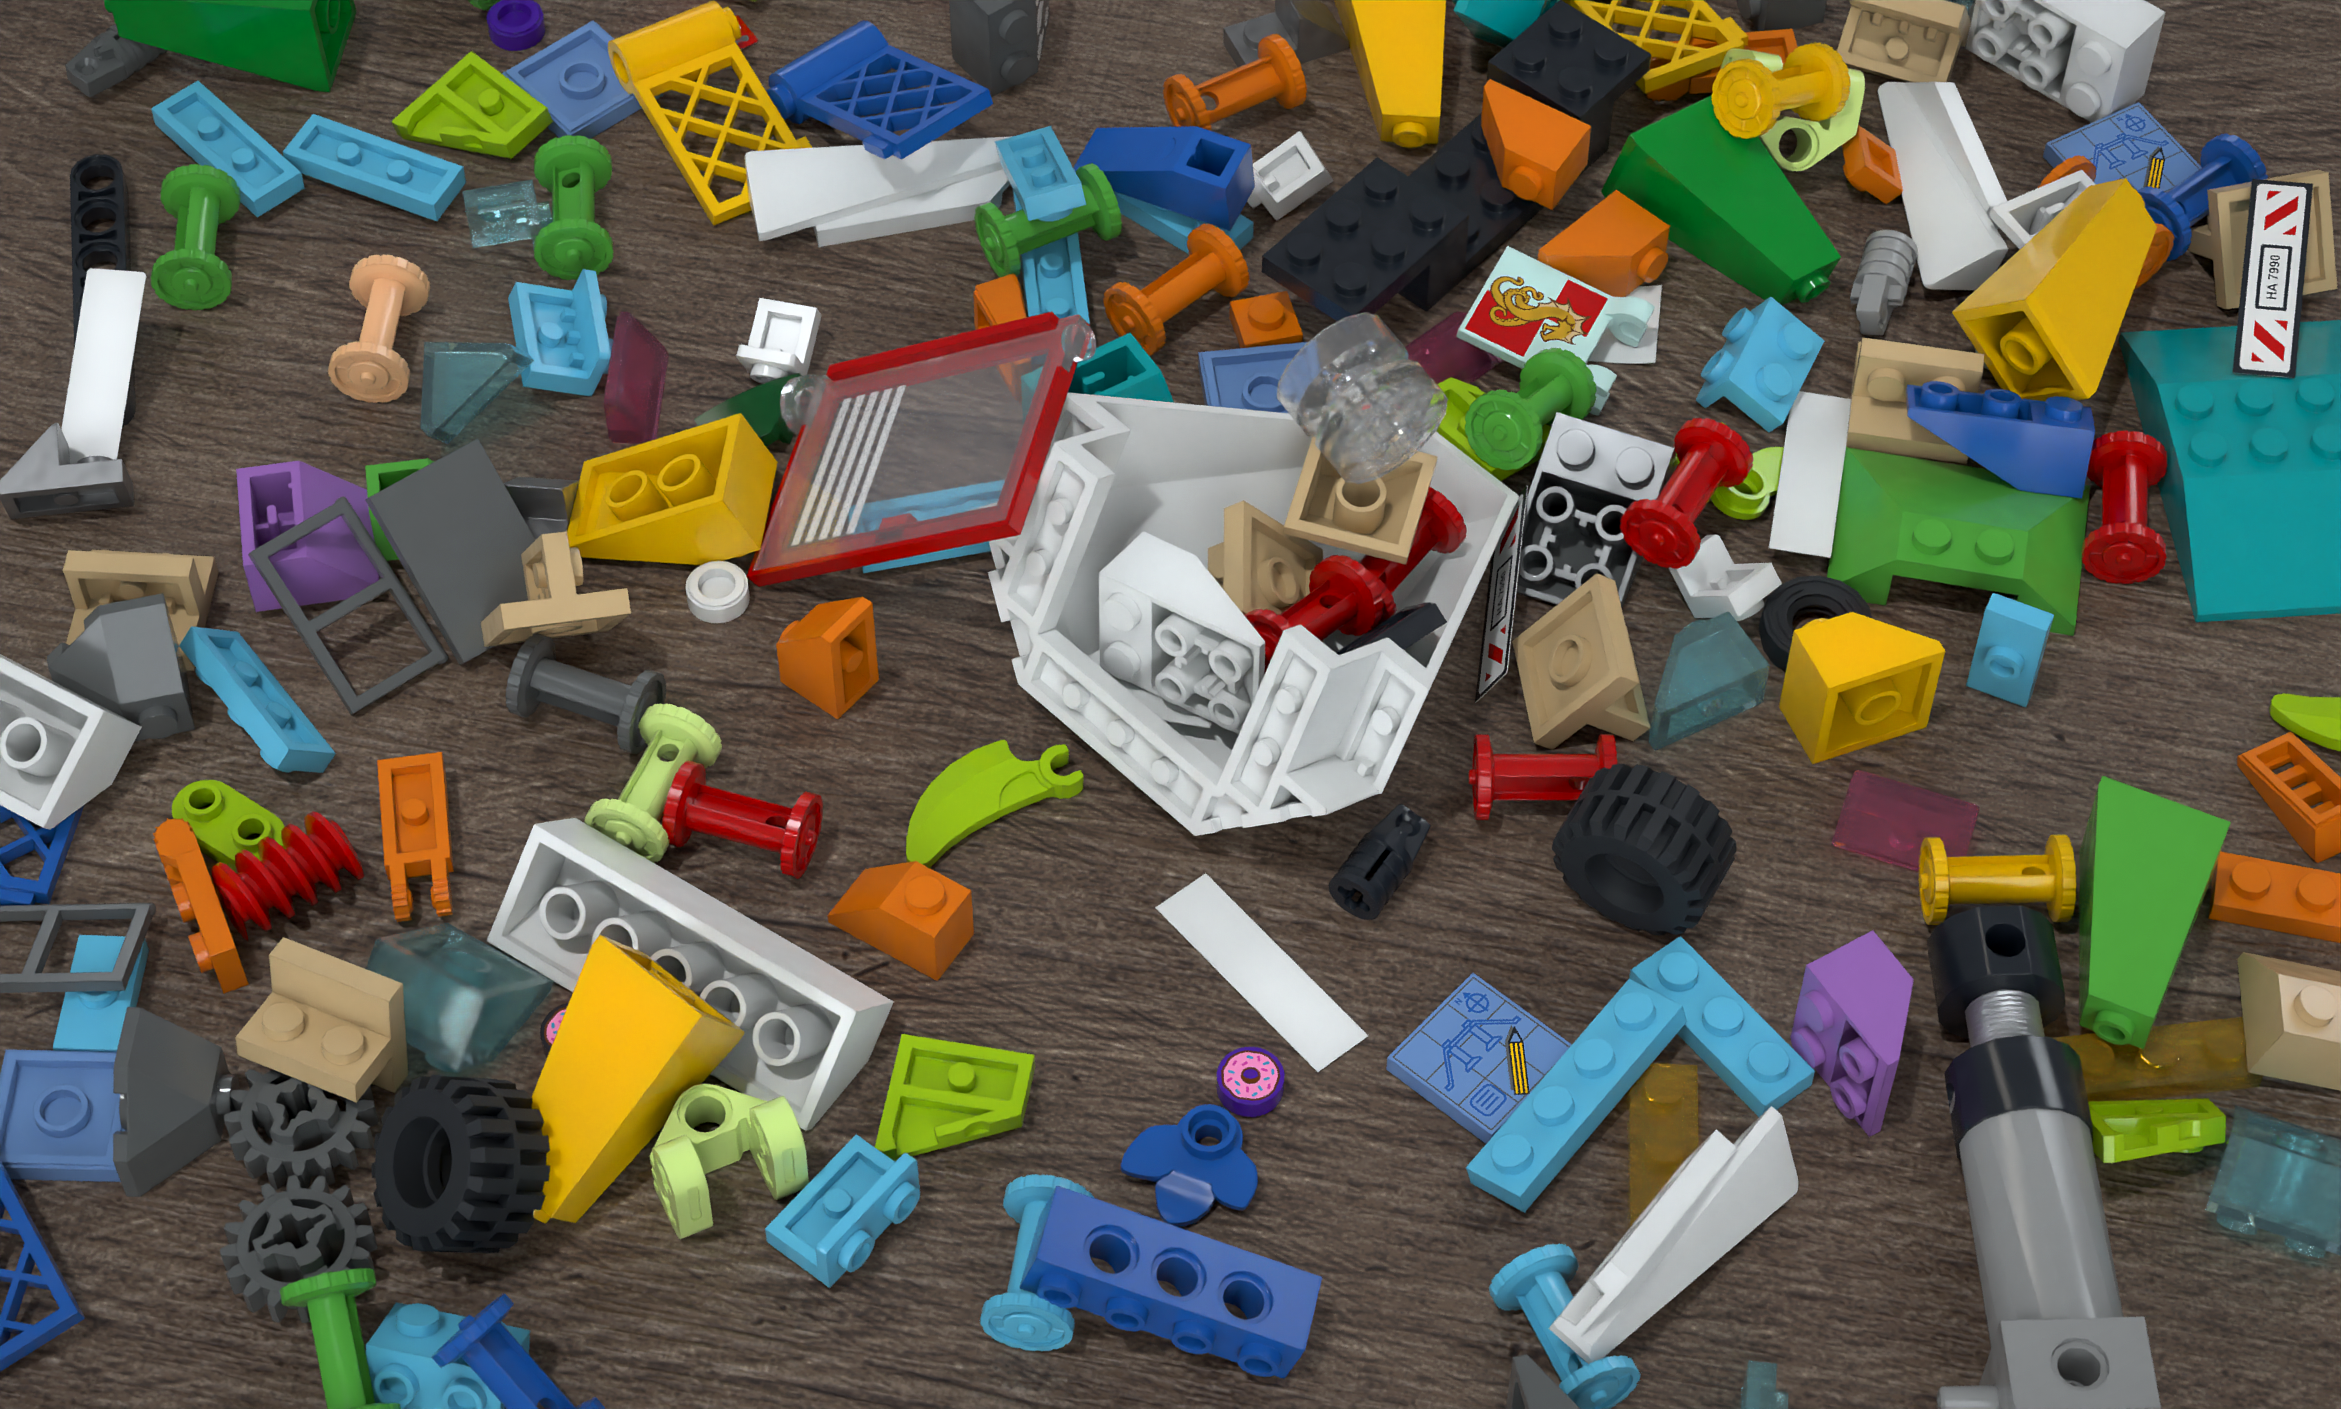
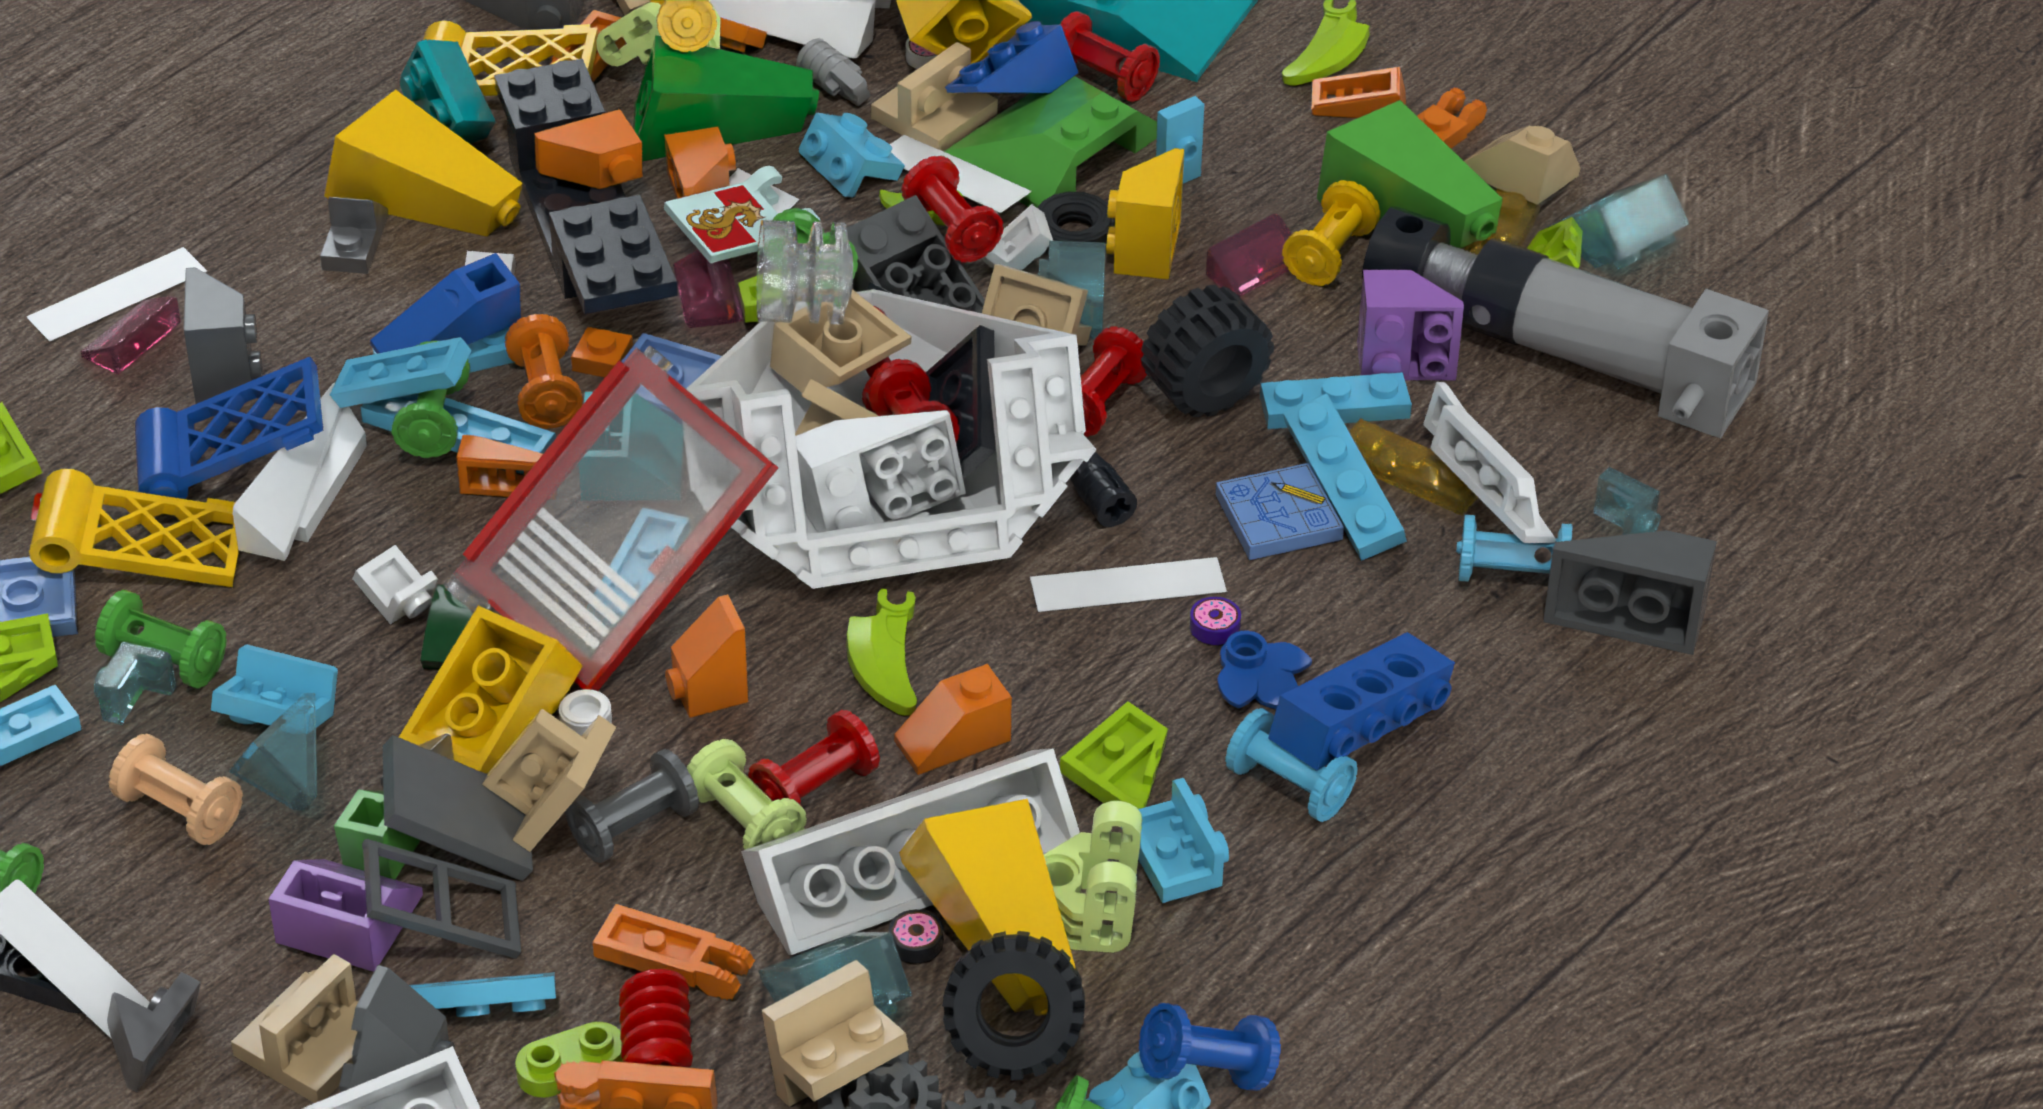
camera: 60 degrees left, 10 degrees down
(634, 383) = (359, 684): clear pink slope -> none
(1272, 75) = (396, 245): orange hose -> none

